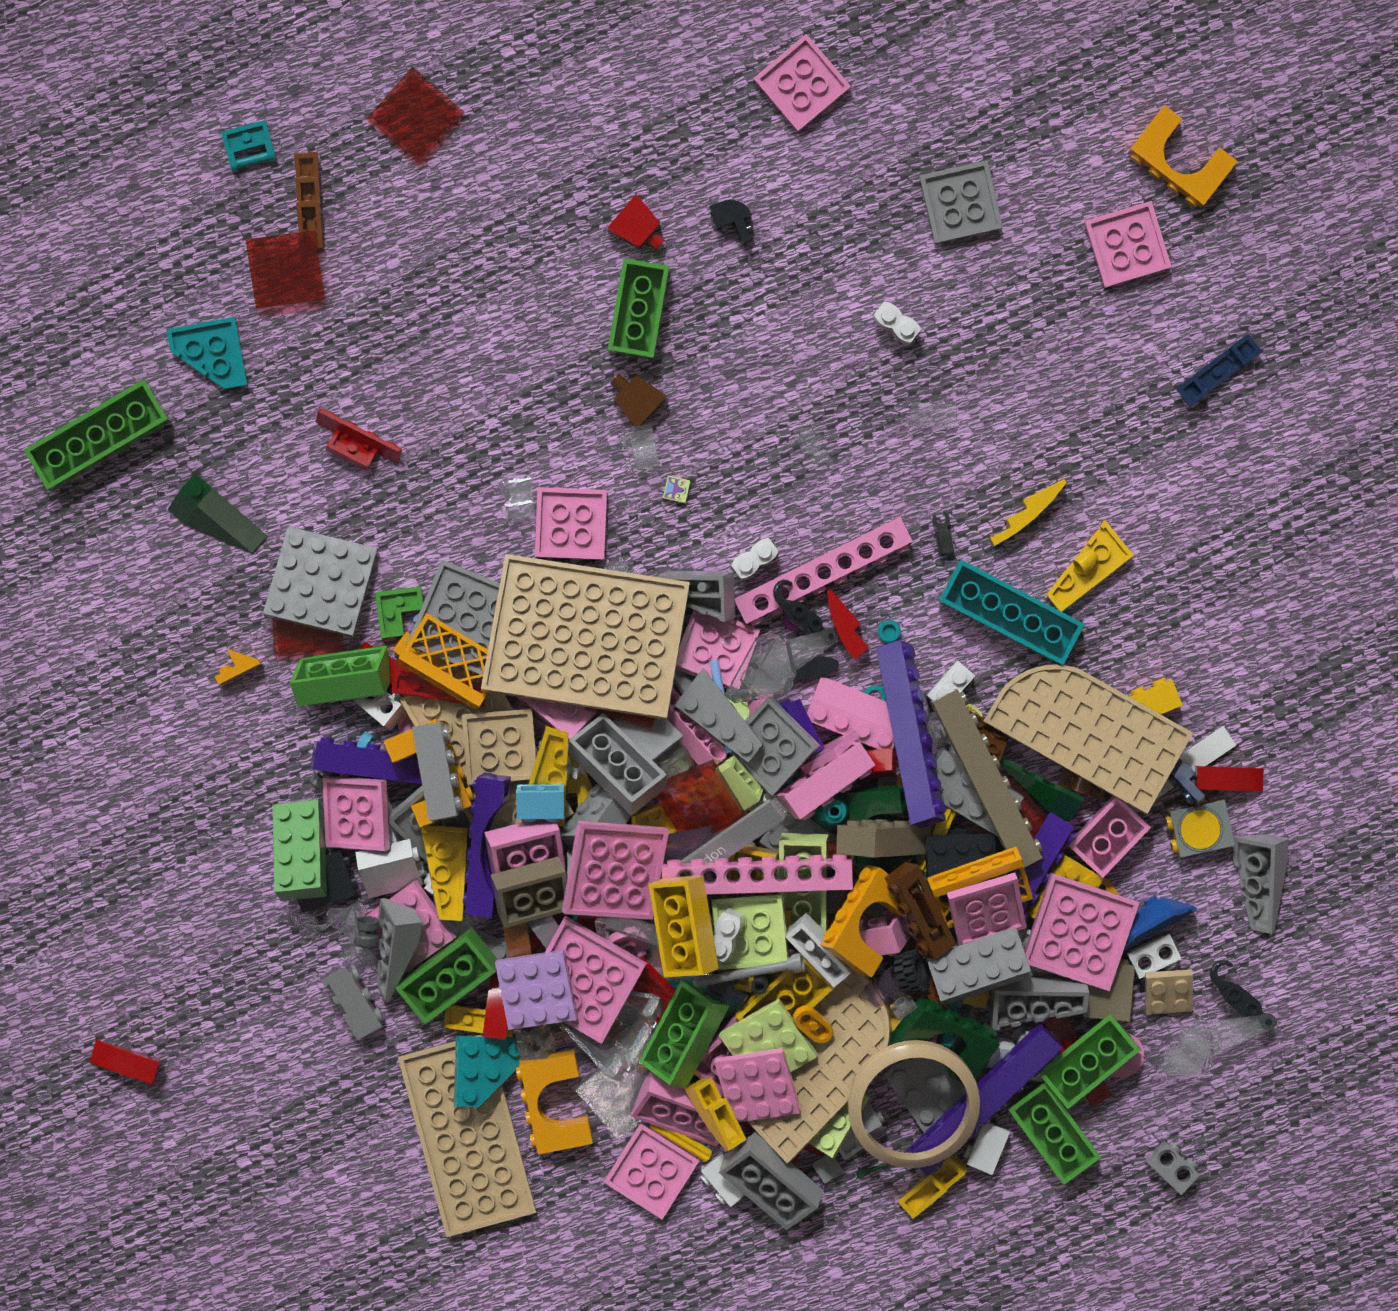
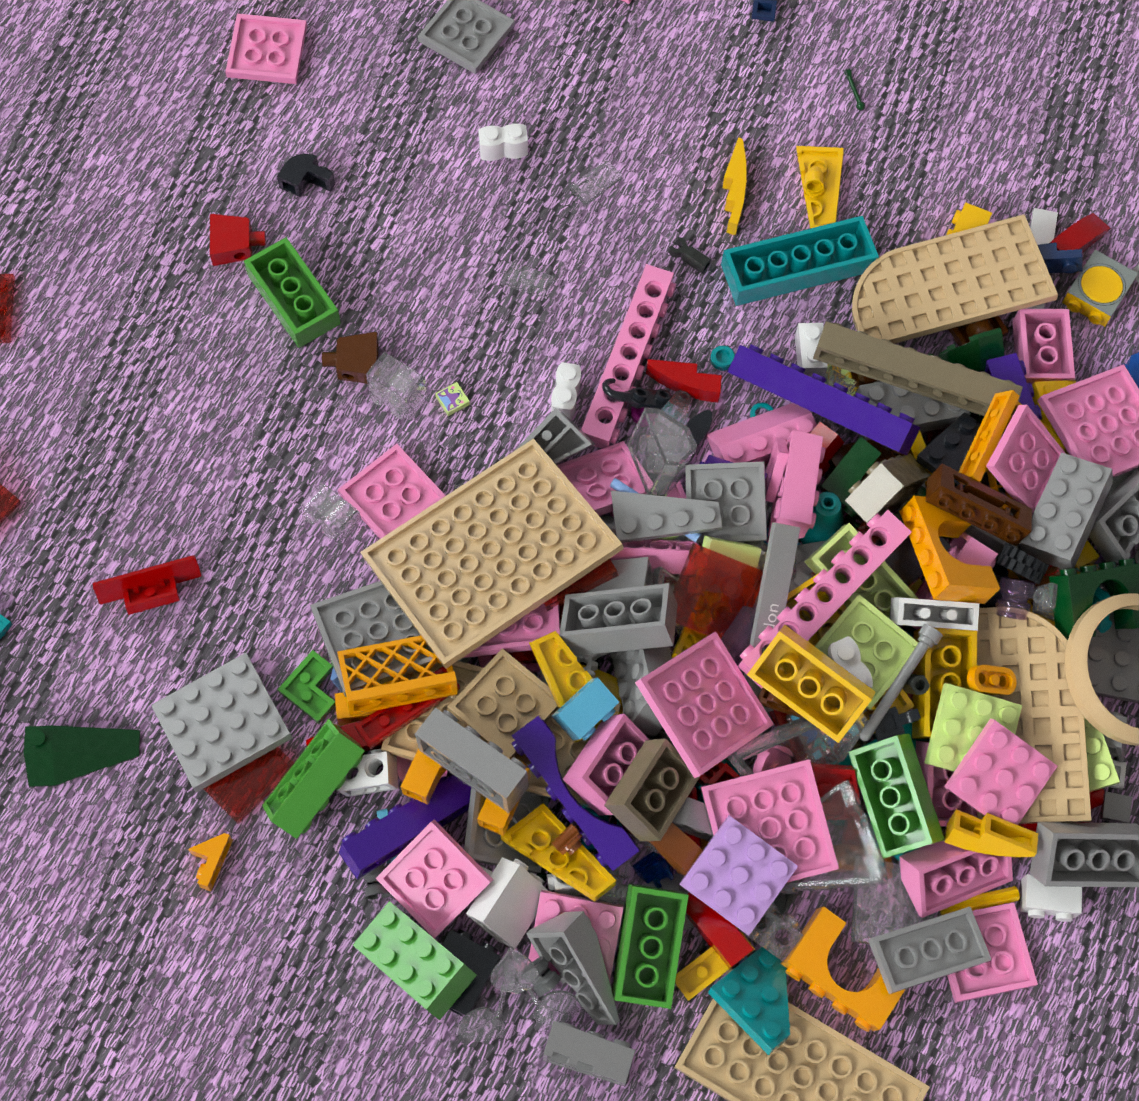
camera: 50 degrees left, 20 degrees down
(455, 870) = (568, 840): none -> dark orange plate
(495, 932) = (653, 868): none -> clear blue plate
(613, 1139) = (929, 950): none -> light grey plate
(1187, 529) = (860, 105): none -> dark green hinge

